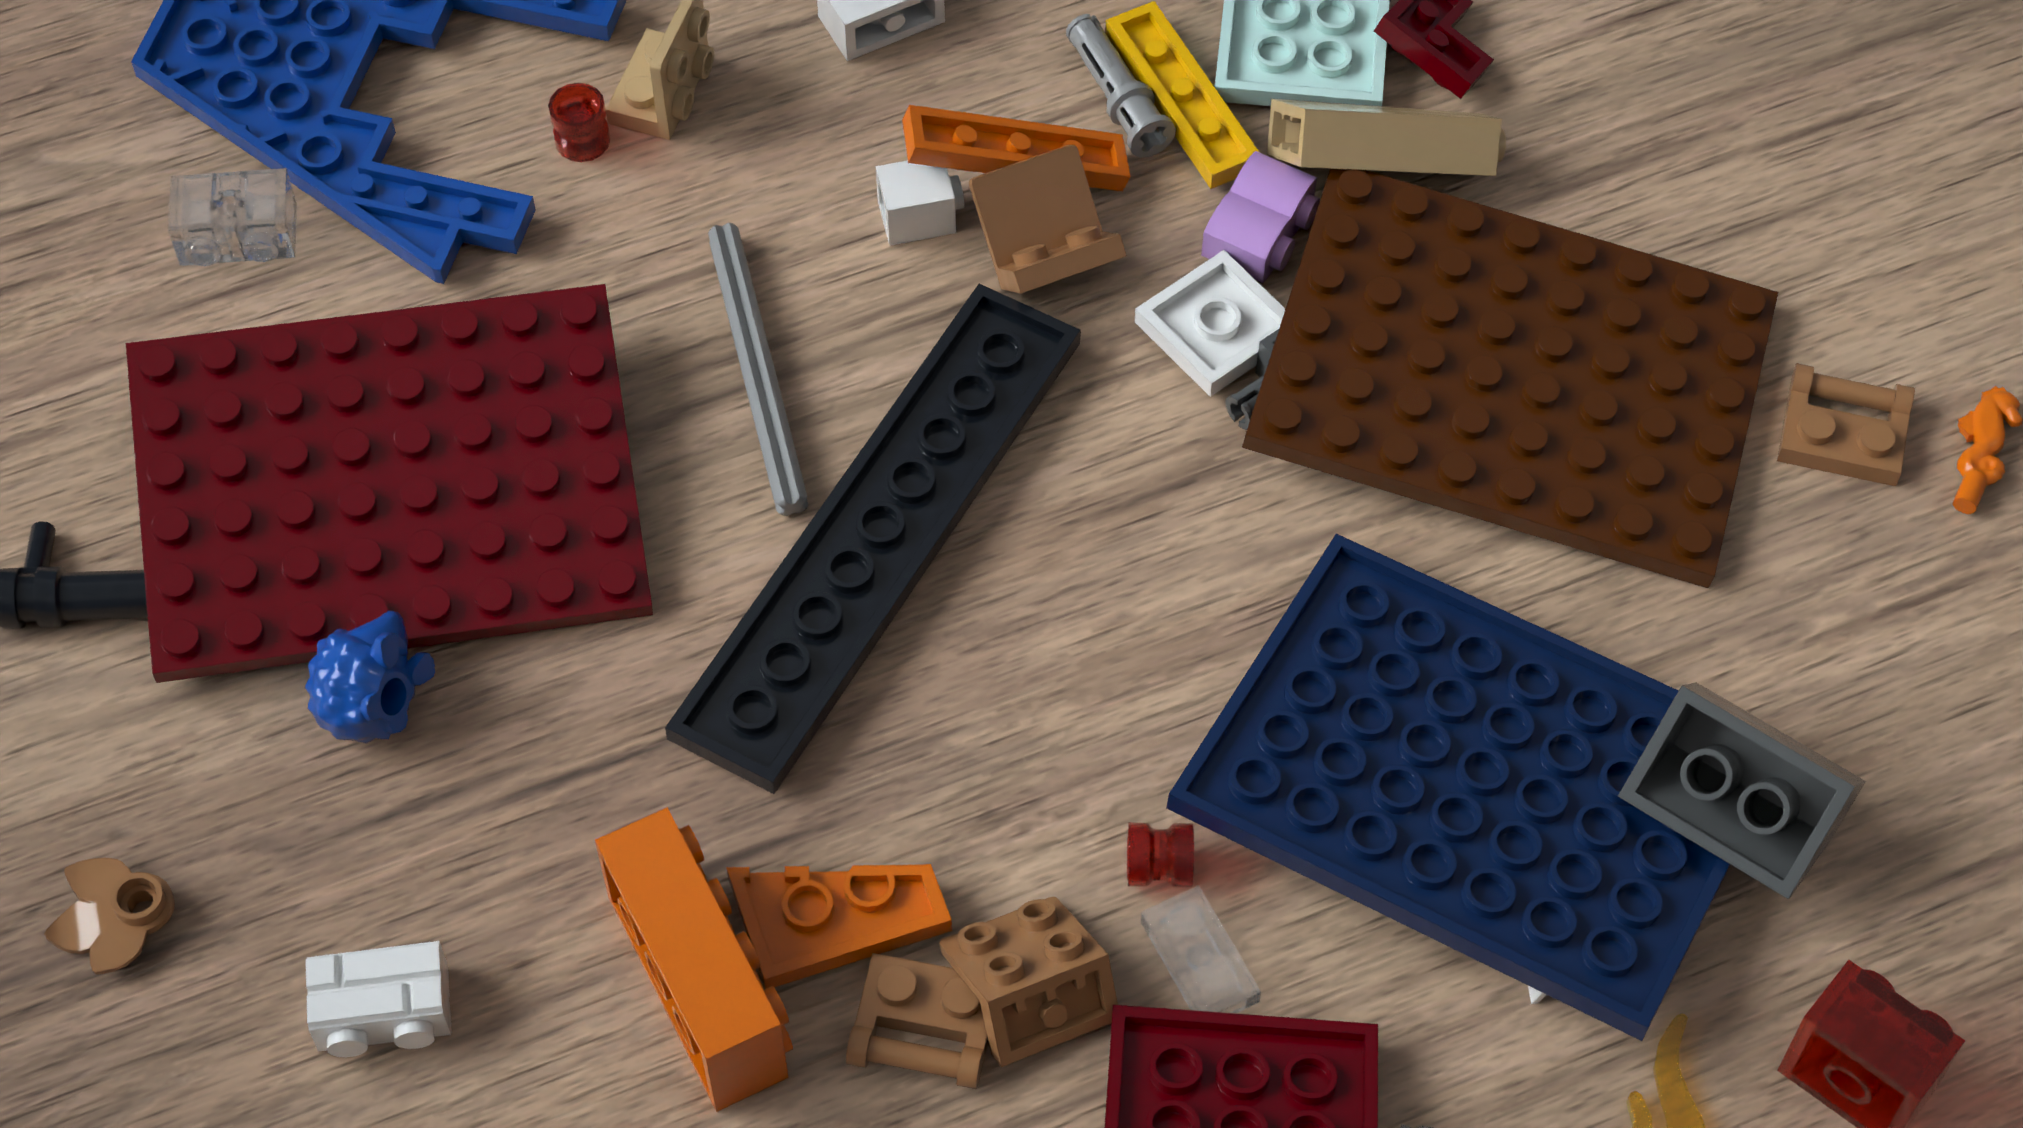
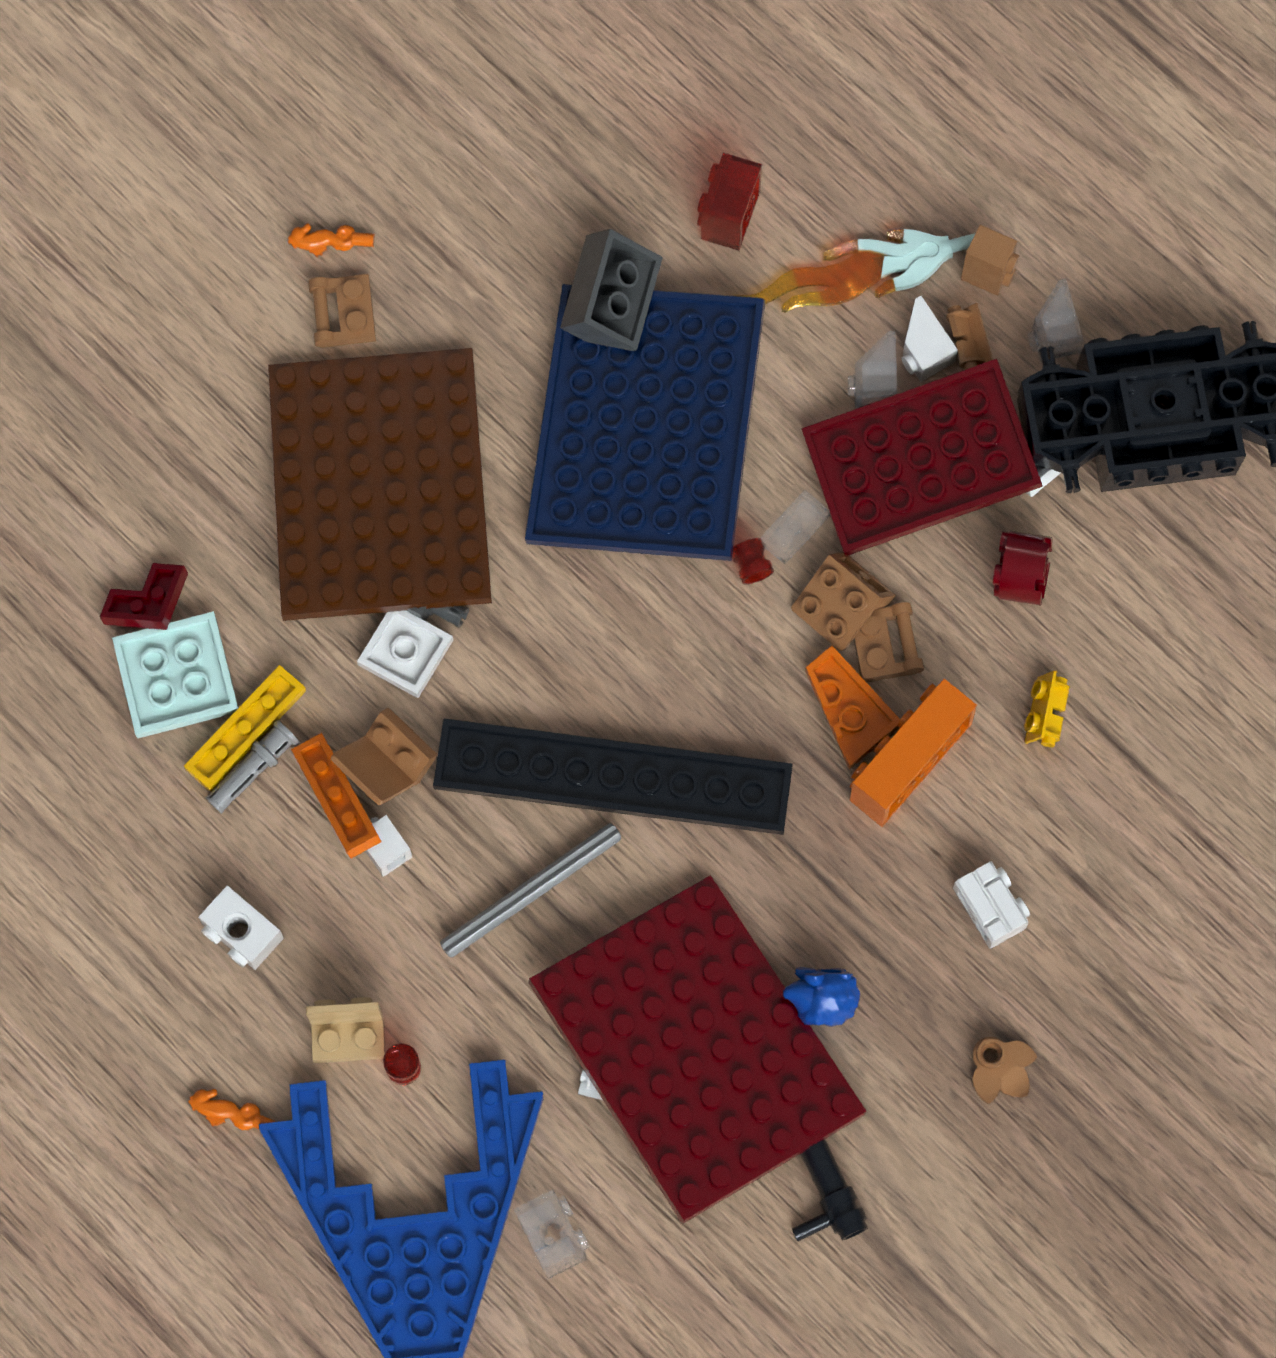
camera: 110 degrees left, 15 degrees up
(1262, 215) = (323, 651): lavender brick -> none
(1384, 138) = (249, 600): tan slope -> none

